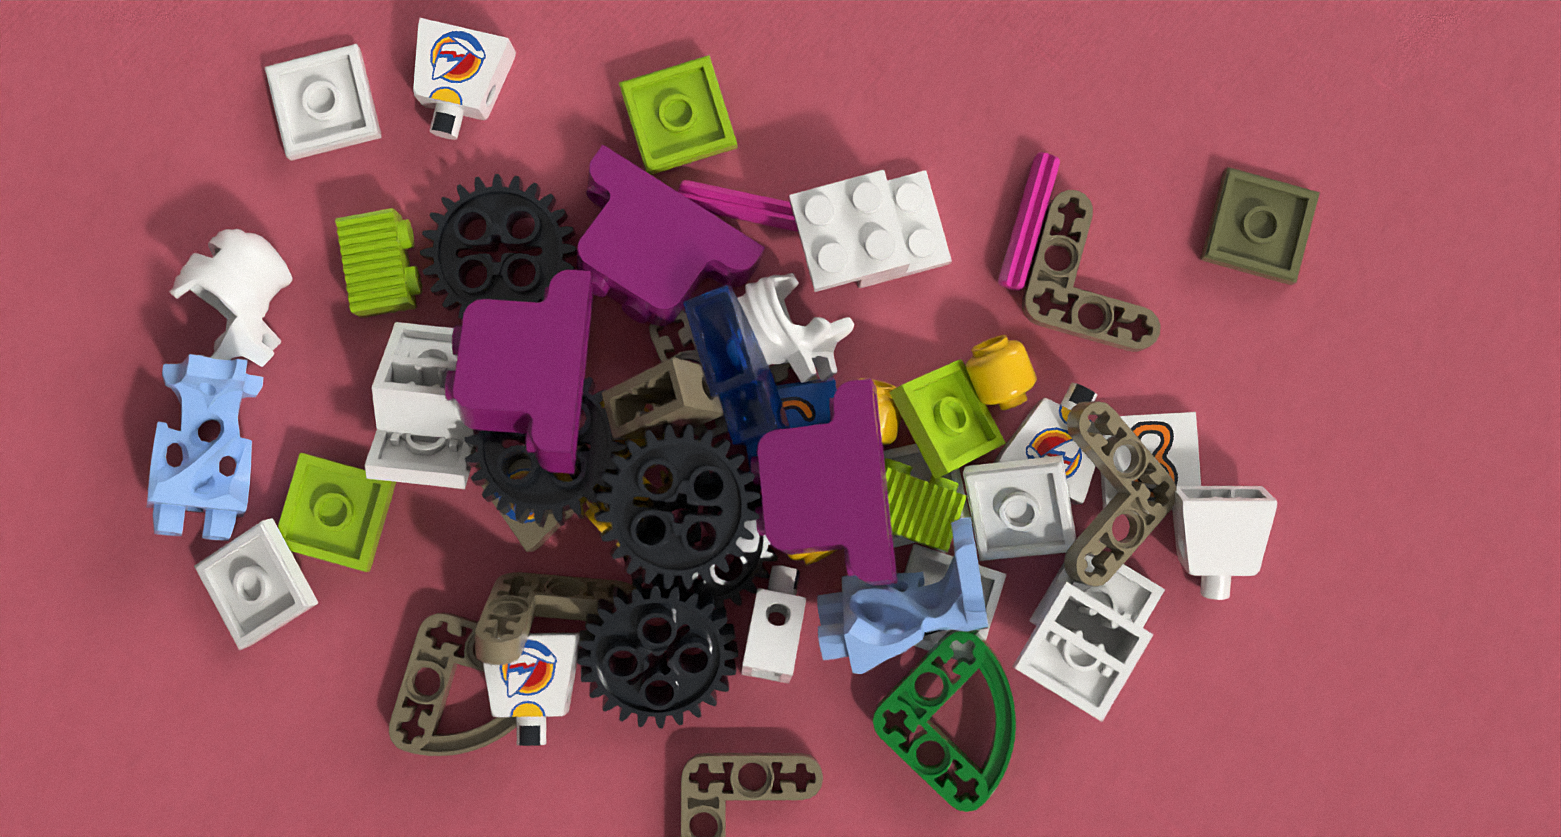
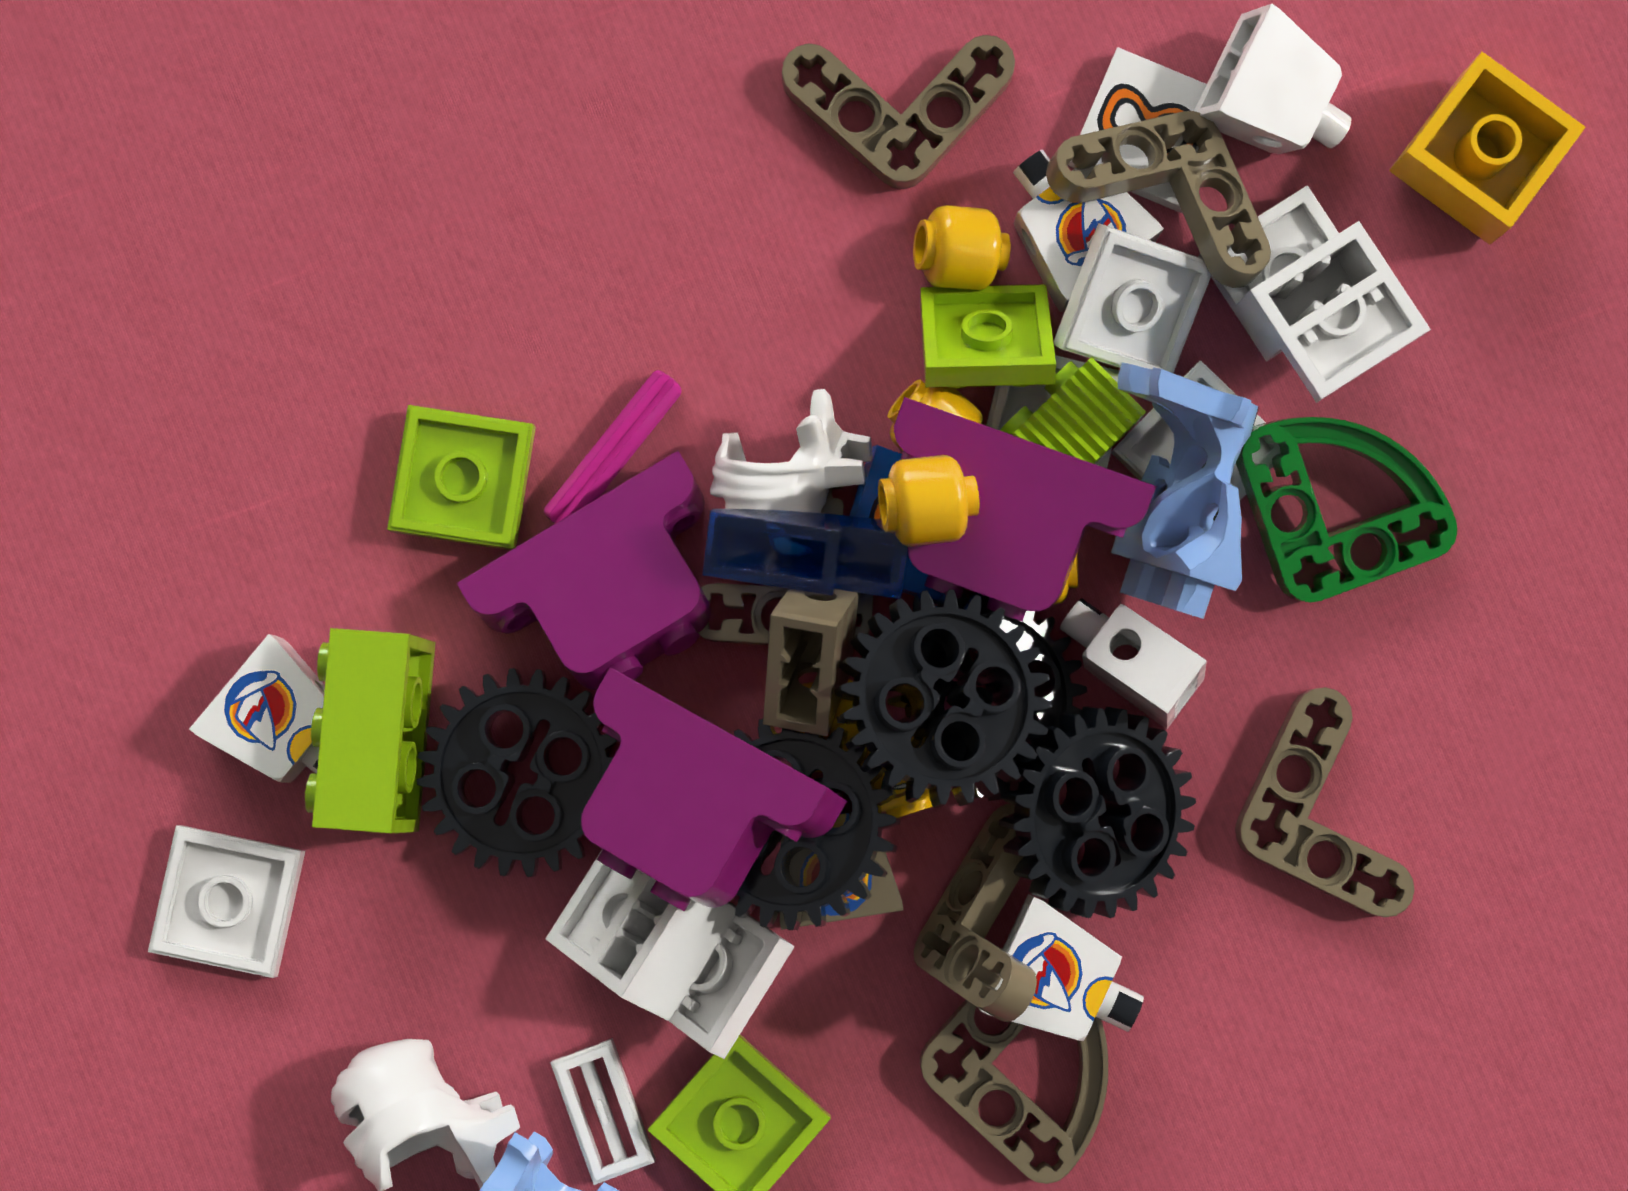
camera: 65 degrees left, 0 degrees up
(330, 389) = (622, 1163): none -> white tile
(378, 262) = (461, 925): lime brick -> none
(474, 137) = (370, 731): none -> lime slope
(804, 427) = (927, 500): none -> yellow head
(869, 229) = (717, 317): white bracket -> none
(1029, 221) = (796, 127): dark pink axle -> none
(1254, 703) = (1487, 148): none -> yellow brick

